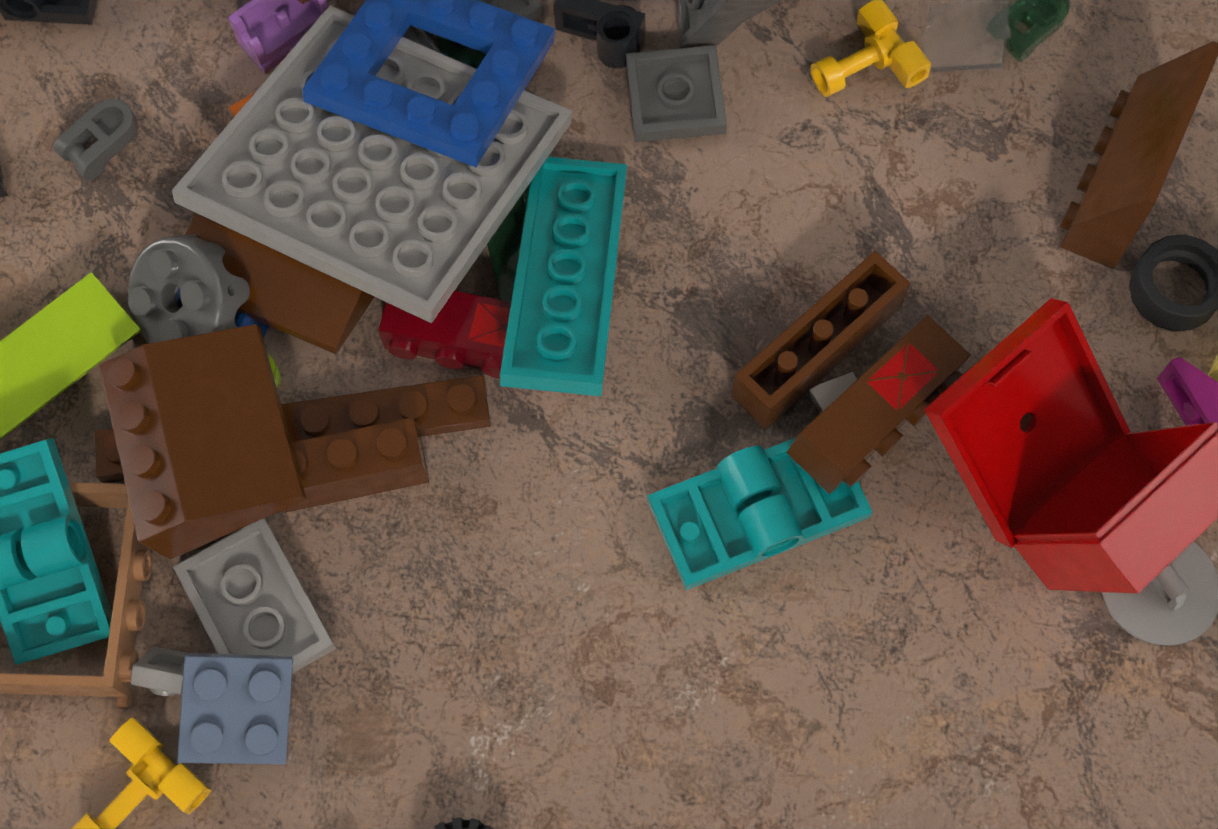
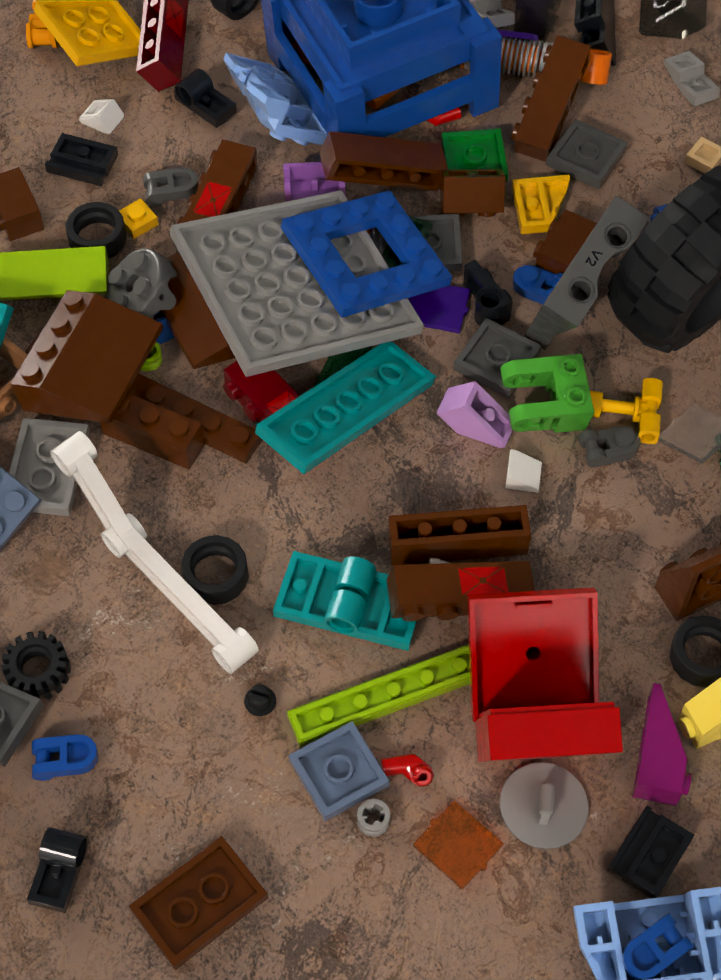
camera: 35 degrees right, 10 degrees down
(32, 236) = (96, 213): none -> black tyre
(90, 207) = (138, 218): none -> yellow plate
(168, 99) = (224, 182): none -> reddish brown brick
(432, 623) = (127, 537): none -> white piece
(565, 74) = (442, 308): none -> dark purple piece
(573, 547) = (213, 546): none -> black tyre
(711, 180) = (475, 414): none -> lavender slope
(757, 704) = (260, 700): none -> black piece
(792, 82) = (568, 389): none -> bright green brick
(815, 213) = (523, 472): none -> white slope
(887, 590) = (381, 695): none -> lime tile
(889, 103) = (620, 444): none -> dark grey plate
(919, 721) = (338, 771): none -> sand blue plate
(989, 653) = (409, 766): none -> red arm
(1012, 755) = (368, 807): none -> light grey bush
(1109, 702) = (458, 845): none -> clear orange piece

